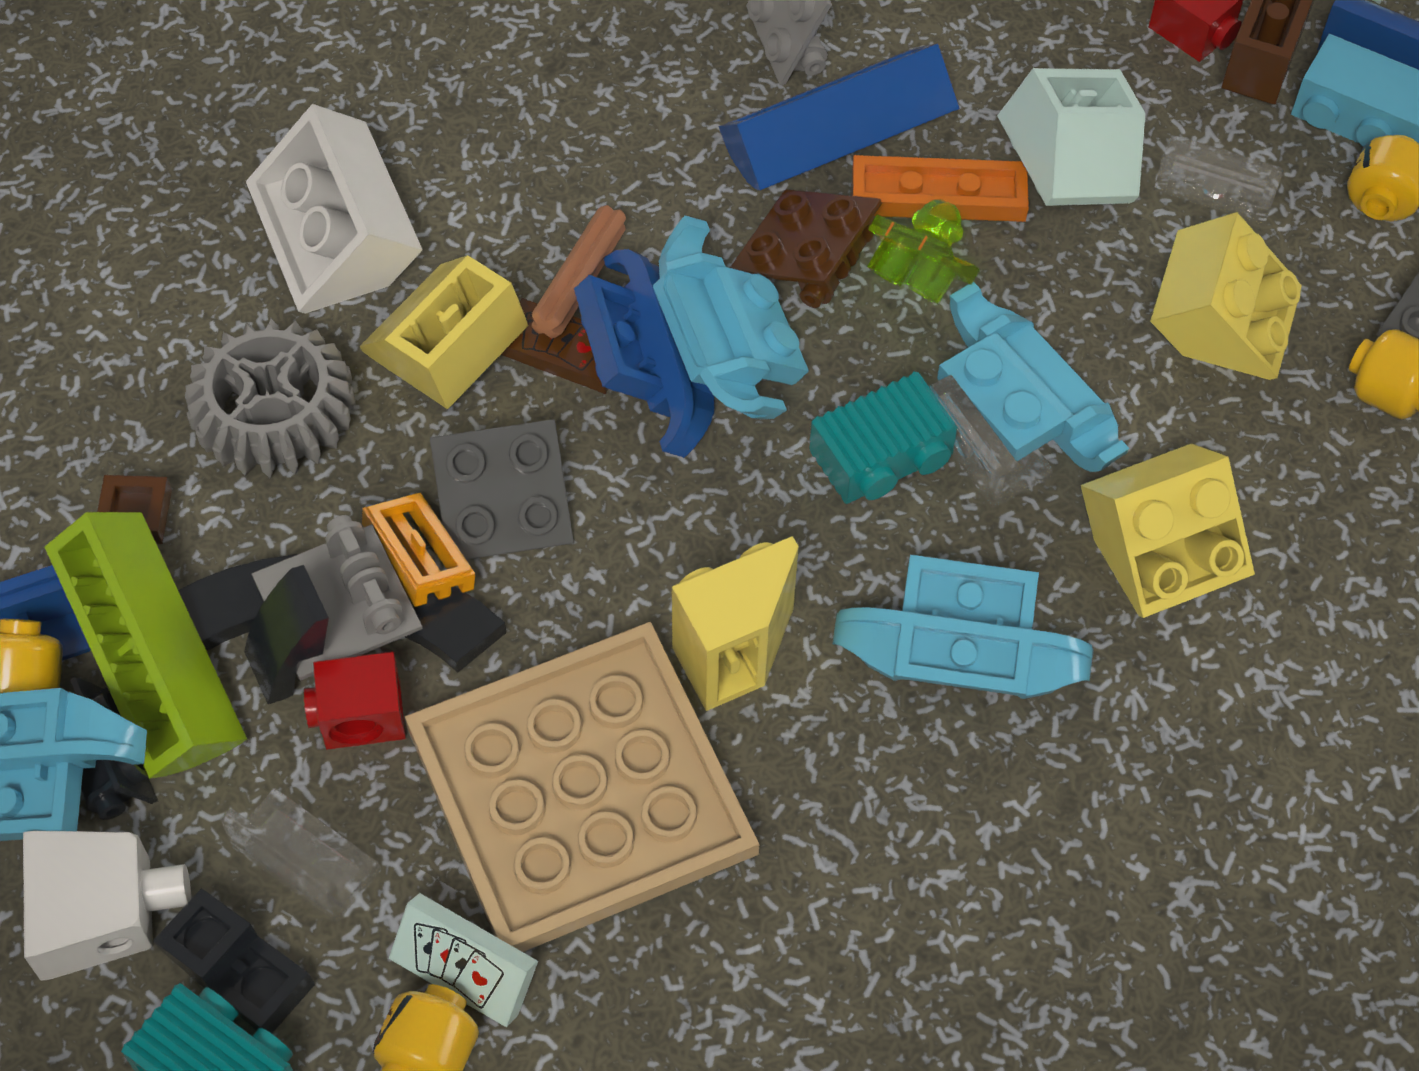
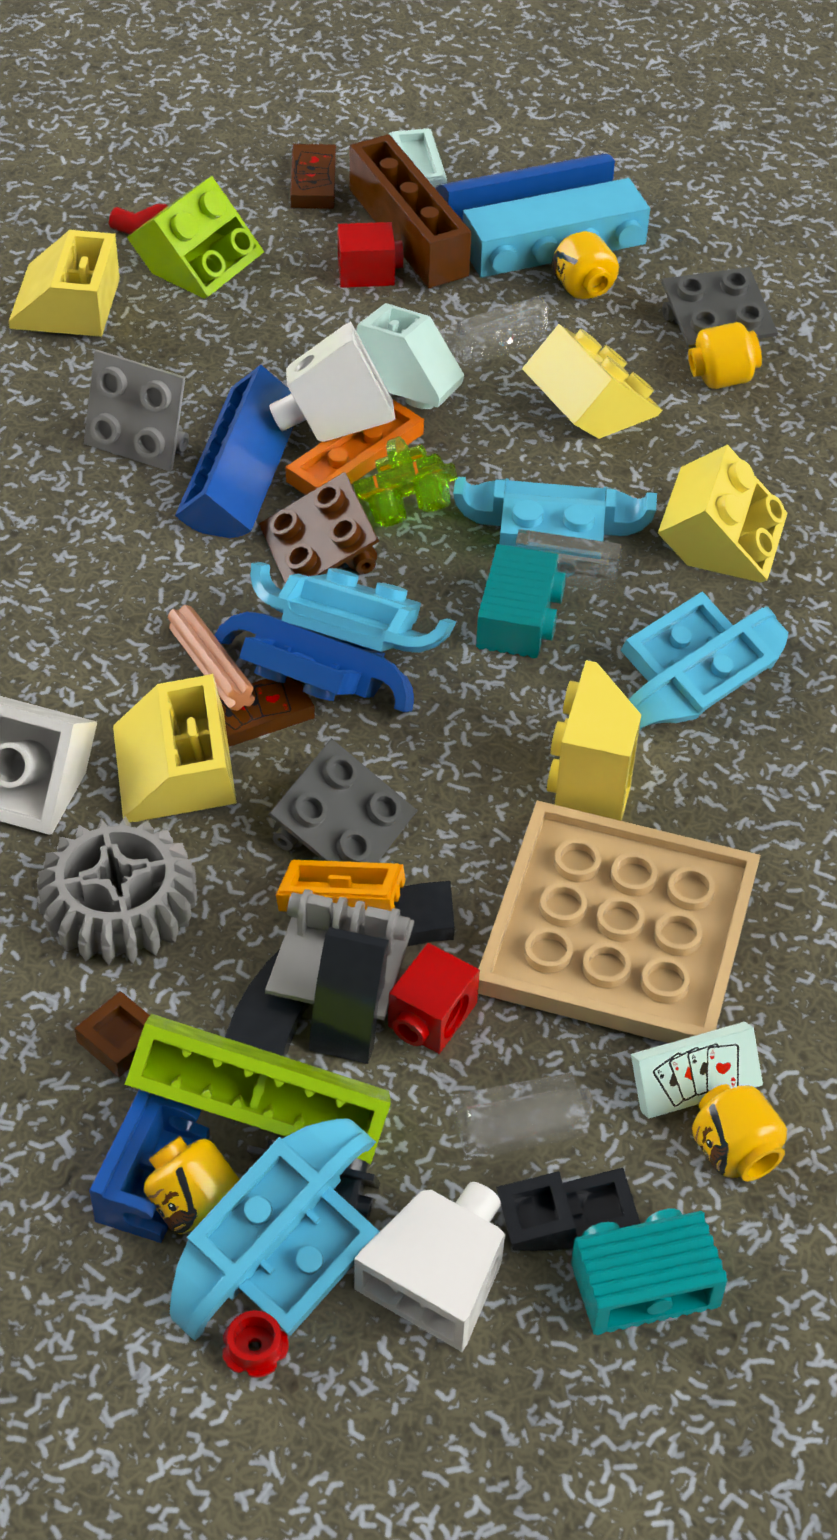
camera: 50 degrees left, 10 degrees down
(962, 117) = (334, 389): none -> white torso

